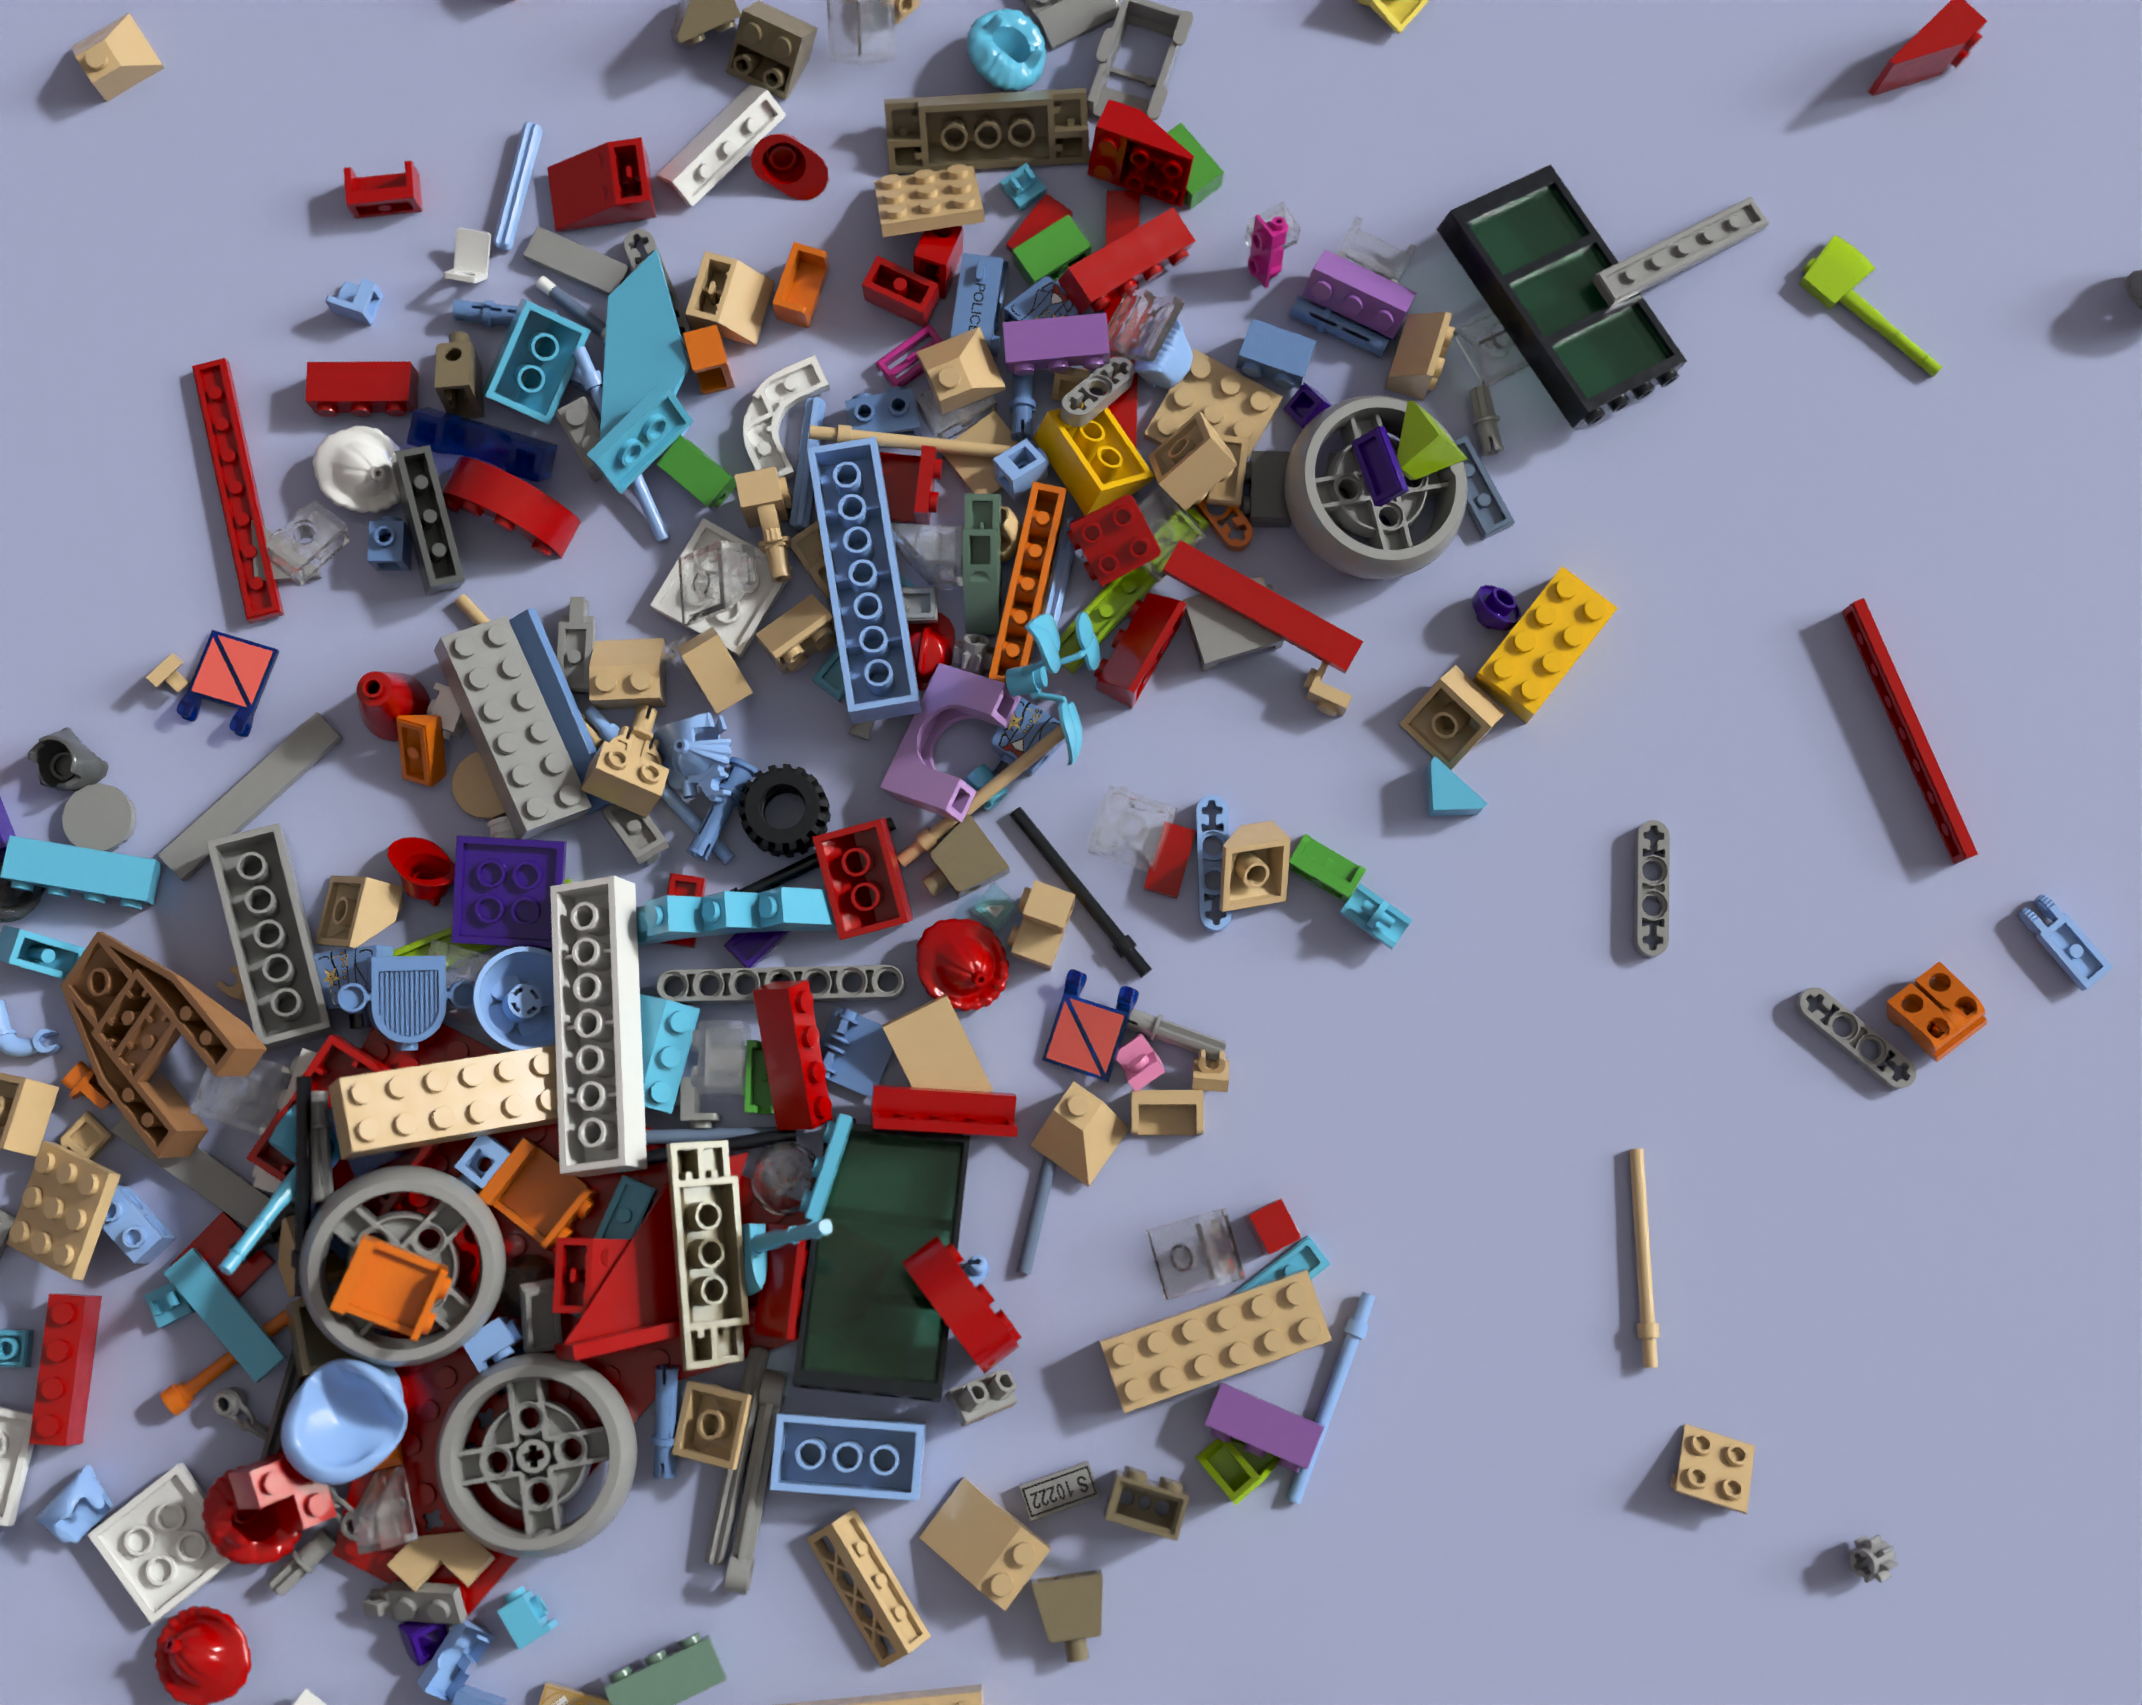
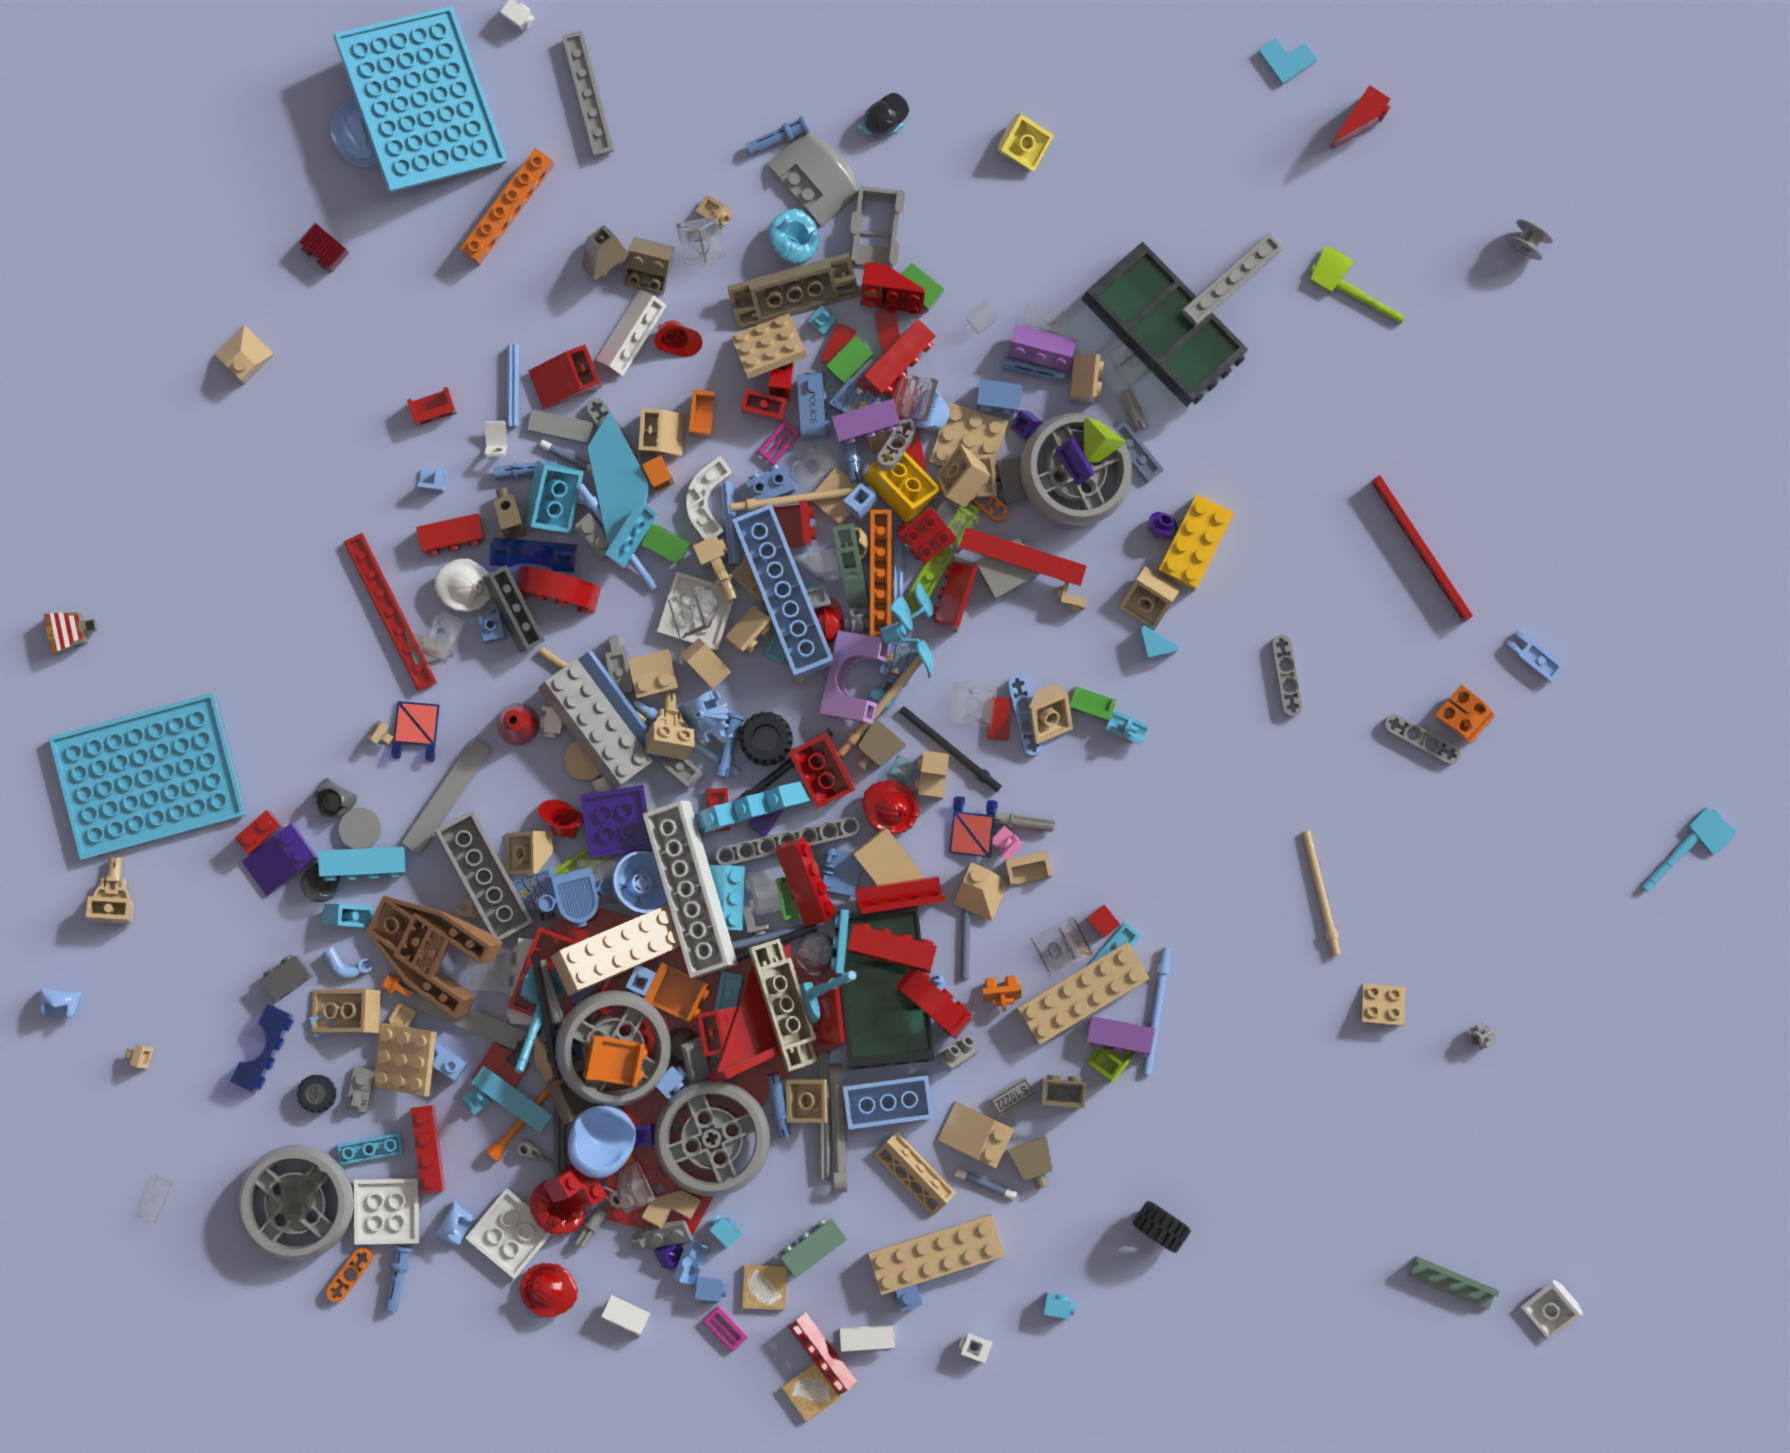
camera: 10 degrees left, 5 degrees up
(421, 748) = (543, 747): orange slope -> none
(423, 1425) = (644, 1135): none -> dark purple tile
(909, 1196) = (891, 948): none -> red brick
(960, 370) = (811, 449): tan slope -> none
(983, 1631) = (985, 1184): none -> sand blue bar
(1080, 1315) = (1002, 995): none -> orange hips
(1209, 1073) = (1049, 840): tan tile -> none
(1266, 248) = (980, 332): dark pink hinge -> none

